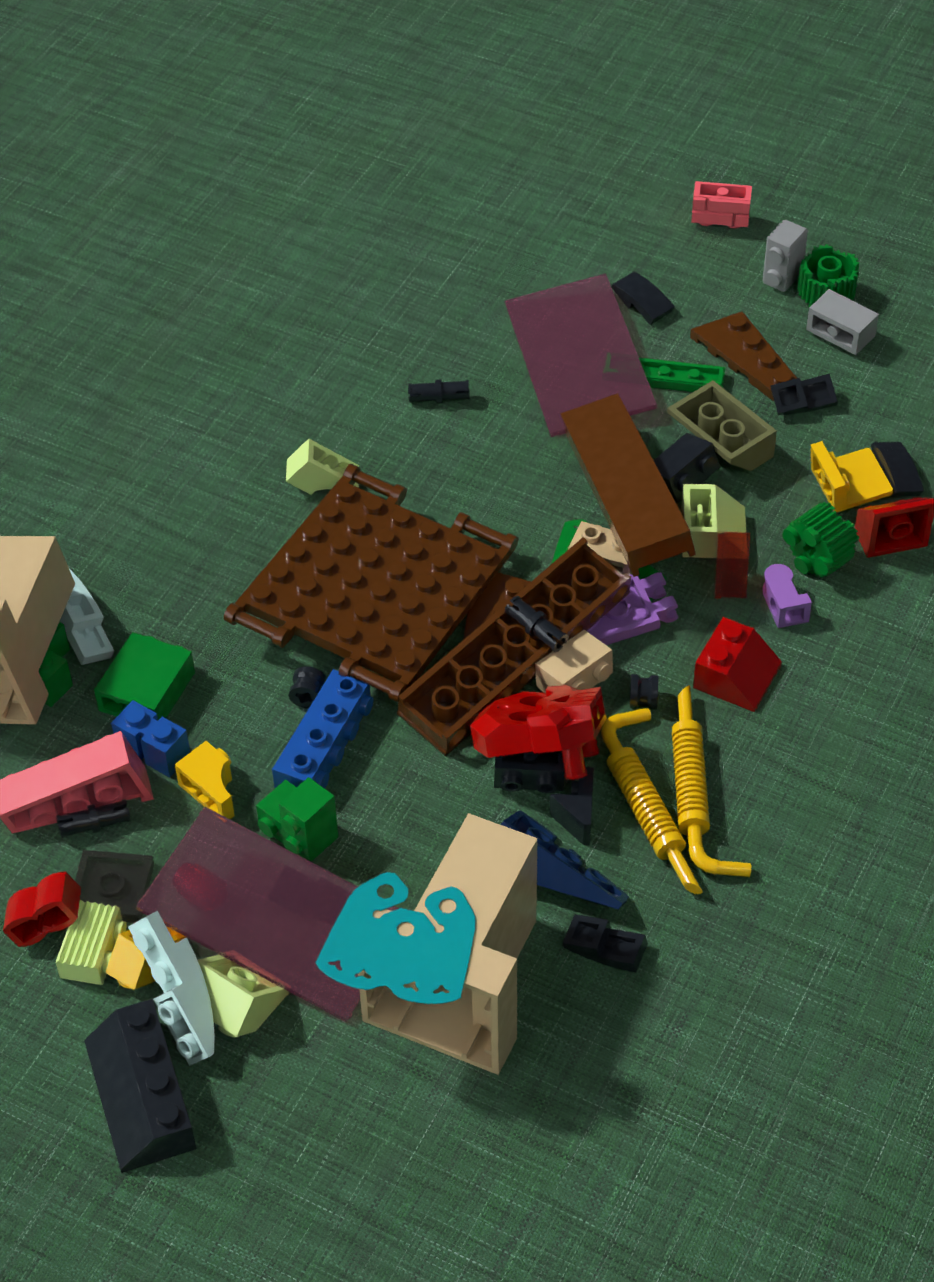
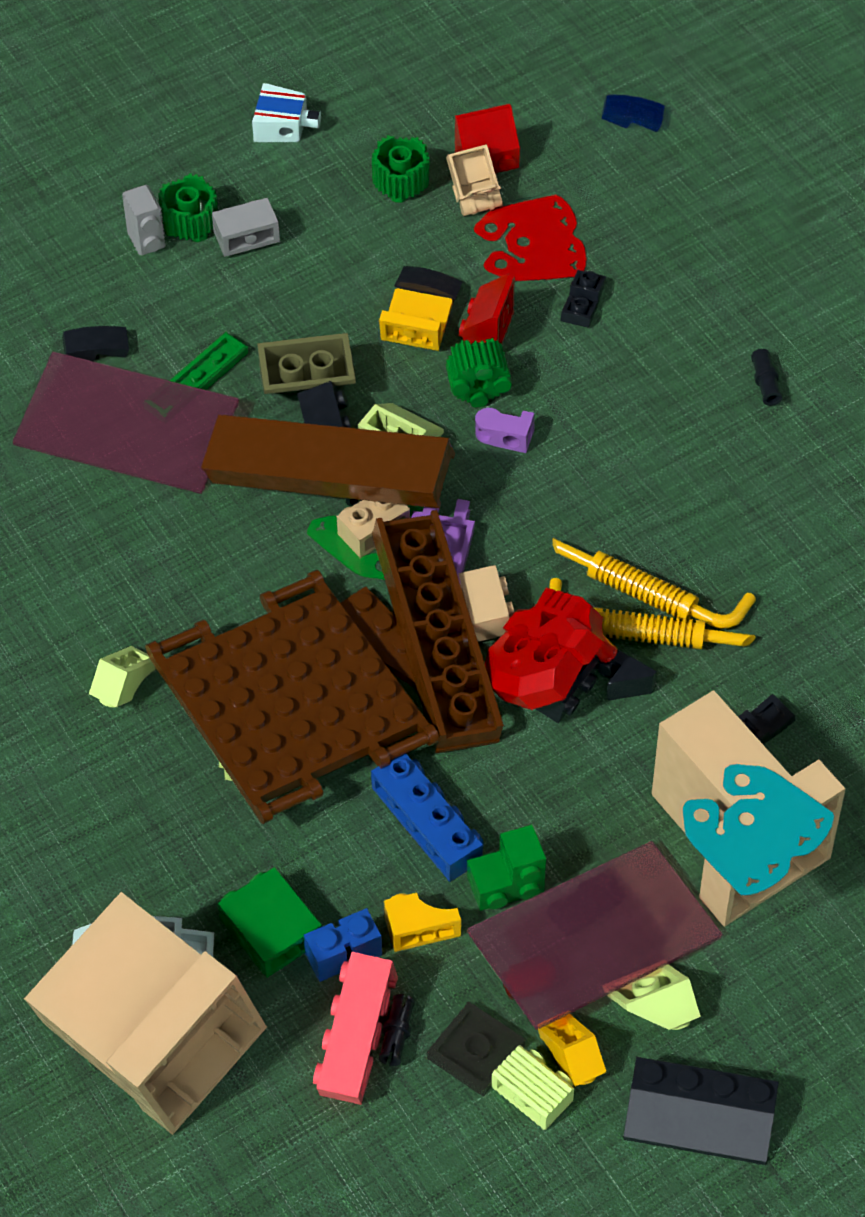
camera: 60 degrees left, 5 degrees up
(42, 909) = (482, 1104): red brick -> none
(185, 999) = (641, 1028): light aqua slope -> none
(306, 686) = (365, 802): black wheel -> none
(438, 391) = (90, 543): black pin -> none
(536, 623) = (445, 597): black pin -> none
(562, 868) = (635, 730): dark blue wedge -> none
(644, 691) = (537, 571): black wheel -> none
(721, 204) = (39, 227): coral brick -> none
(731, 564) = (467, 451): clear red panel -> none
(736, 665) = (552, 499): red slope -> none
(745, 350) = (209, 308): reddish brown wing -> none
(804, 396) = (302, 297): black slope -> none

